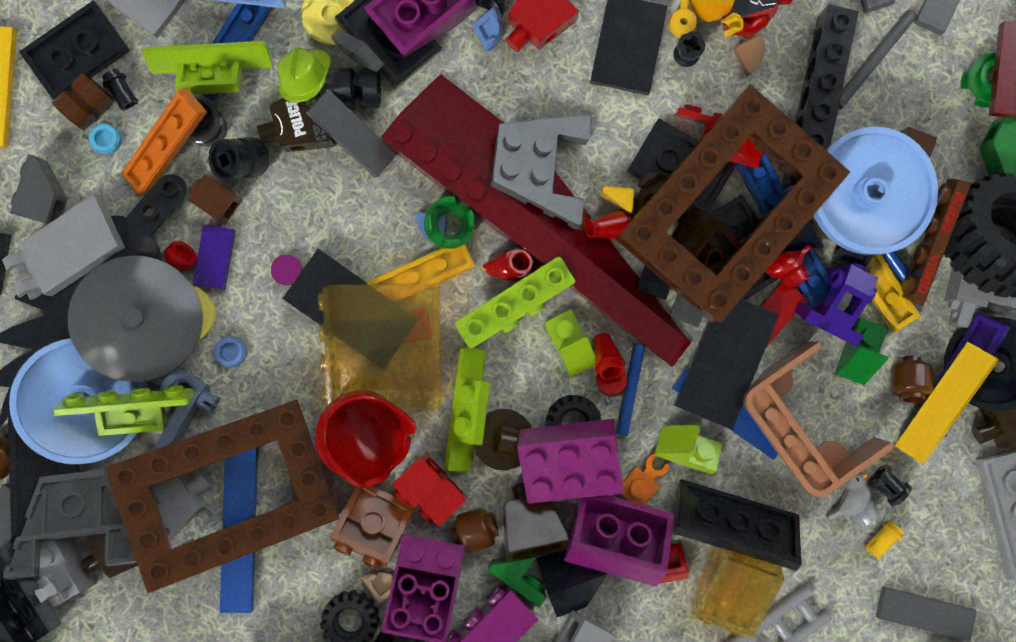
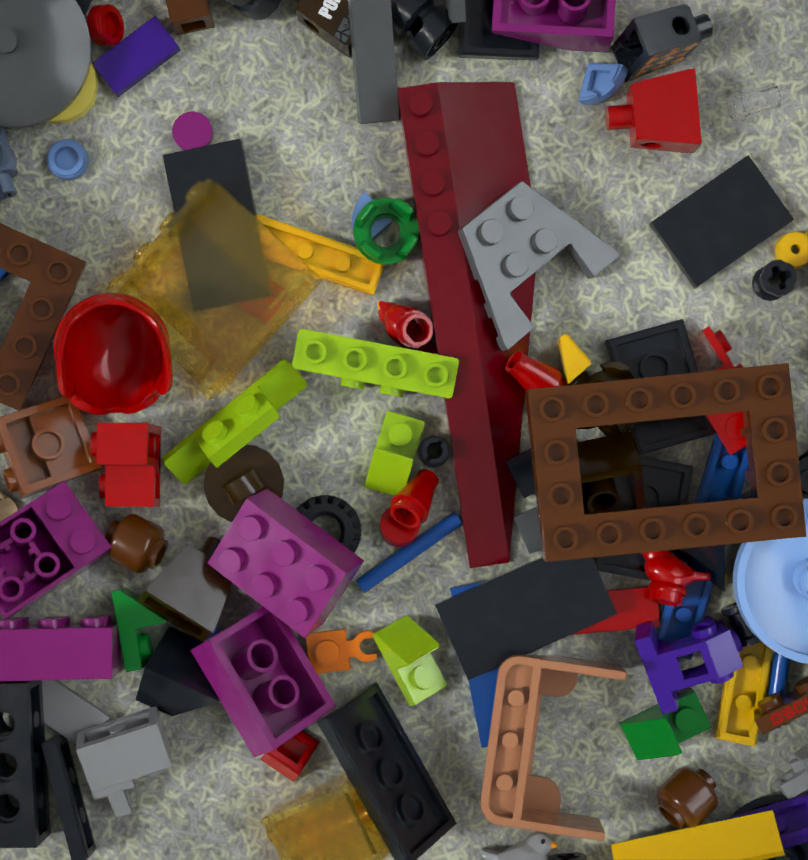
camera: 45 degrees right, 0 degrees up
(583, 321) = (430, 462): none -> black pin

